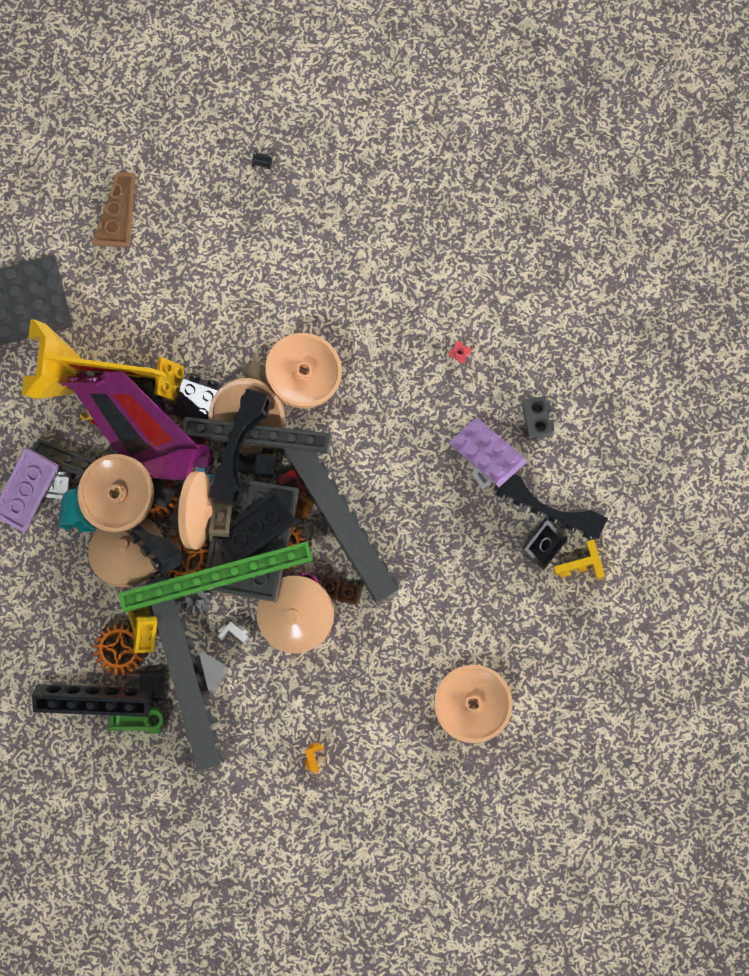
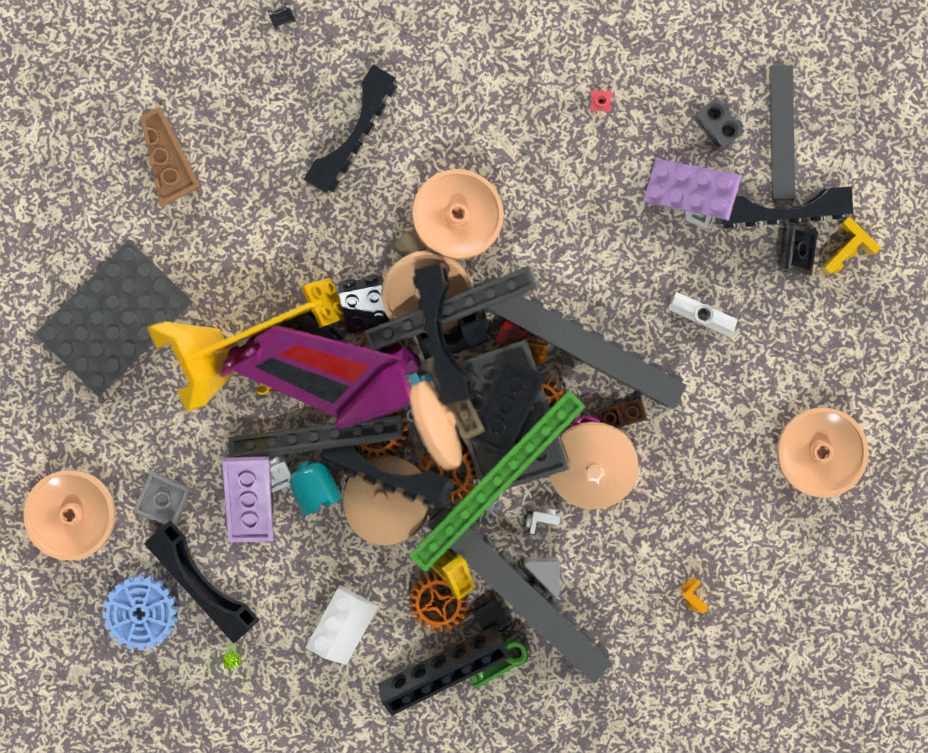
camera: 25 degrees left, 10 degrees up
(36, 625) = (342, 626): none -> white slope
(115, 493) = (344, 454): light nougat dish -> none
(229, 287) = (328, 169): none -> black arch
(436, 540) = (715, 320): none -> white piece
(581, 452) = (782, 132): none -> dark grey tile

